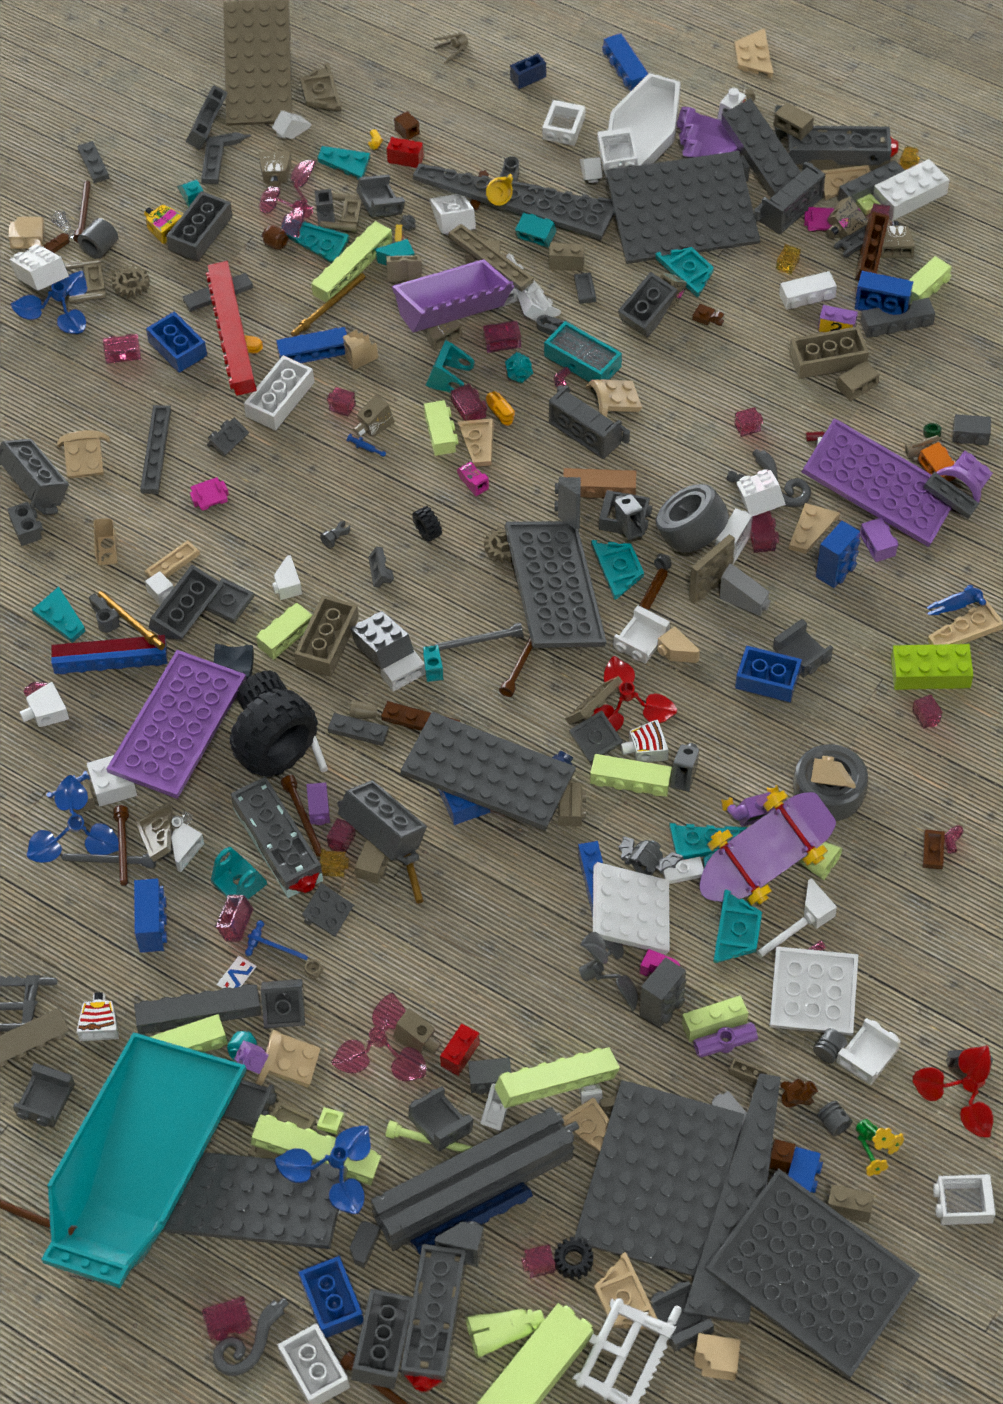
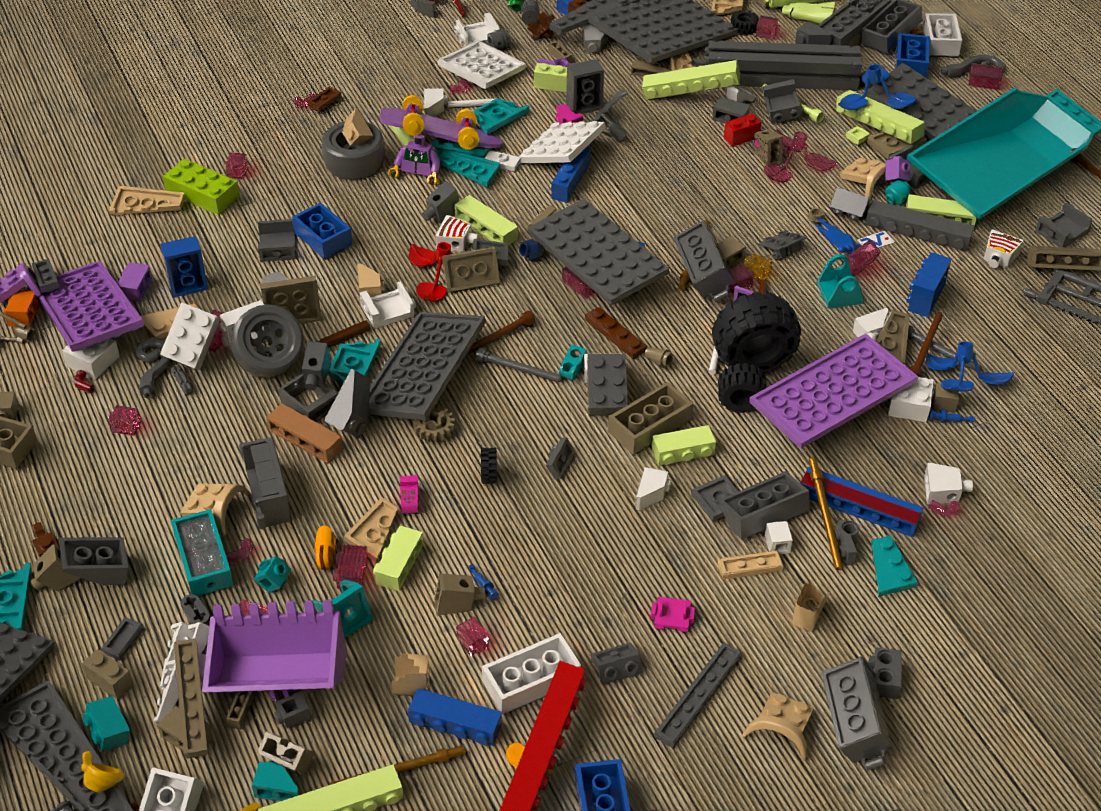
camera: 150 degrees left, 10 degrees down
(235, 658) = (749, 438): black brick -> none
(277, 837) = (796, 284): dark grey piece -> none
(328, 537) = (576, 511): dark grey piece -> none
(358, 729) = (682, 356): dark grey plate -> none
(647, 854) = (523, 167): dark grey helmet -> none
(958, 601) = (115, 214): blue piece -> none

